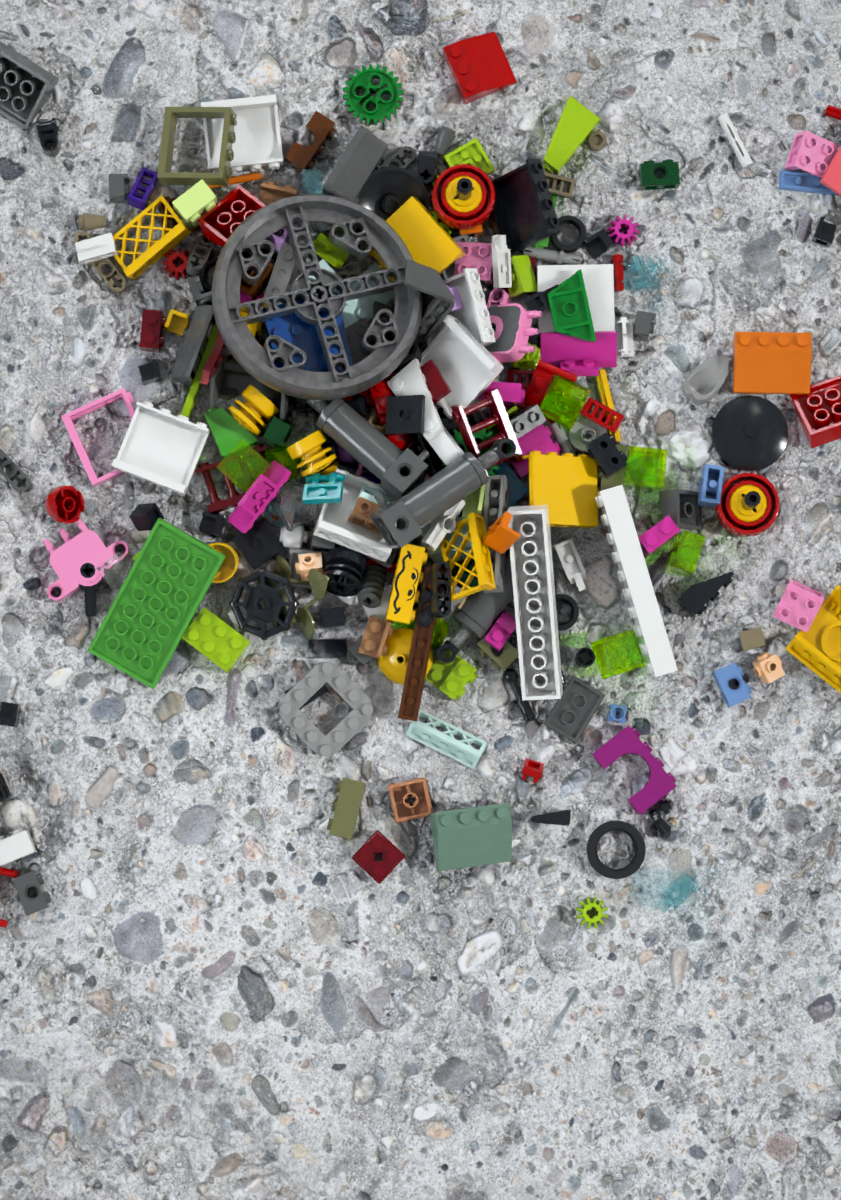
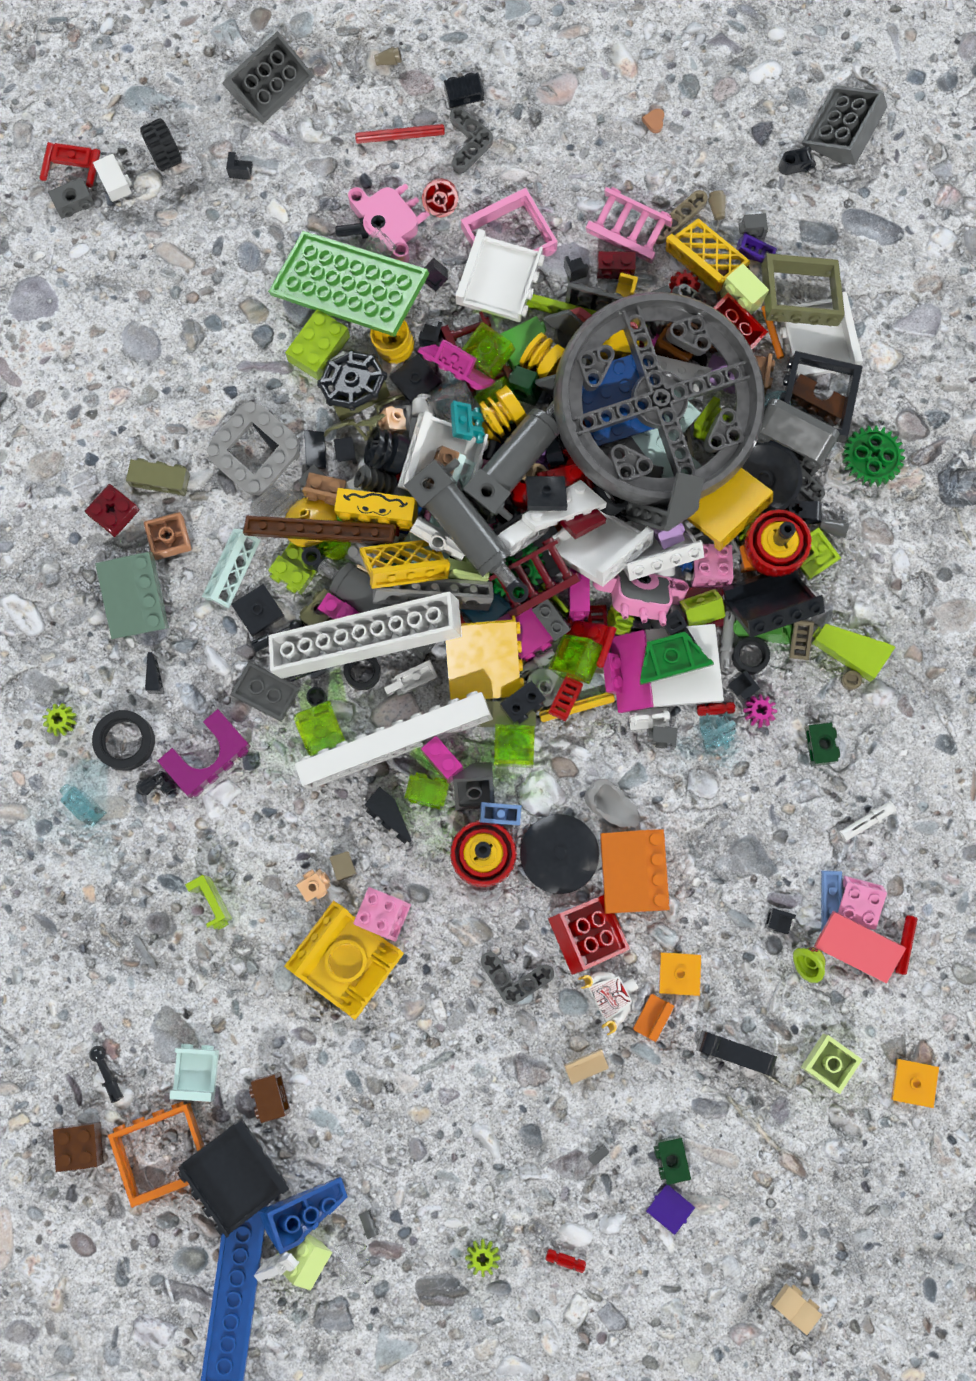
camera: 90 degrees right, 5 degrees down
(96, 248) = (691, 208): white panel -> none
(118, 330) = (613, 236): none -> bright pink fence
(316, 110) = (832, 365): none -> black window
(425, 617) = (344, 529): black piece -> none
(446, 583) = (354, 532): black beam -> none
(479, 66) = (915, 556): red slope -> none
(491, 713) = (257, 610): none -> black plate
(499, 535) = (423, 587): orange panel -> none
(501, 262) = (713, 586): white hinge -> none
(533, 769) = (202, 652): red tile -> none
(622, 712) = (258, 730): medium blue plate -> none
(722, 679) = (283, 849): medium blue brick -> none
(762, 772) = (207, 886): none -> lime panel

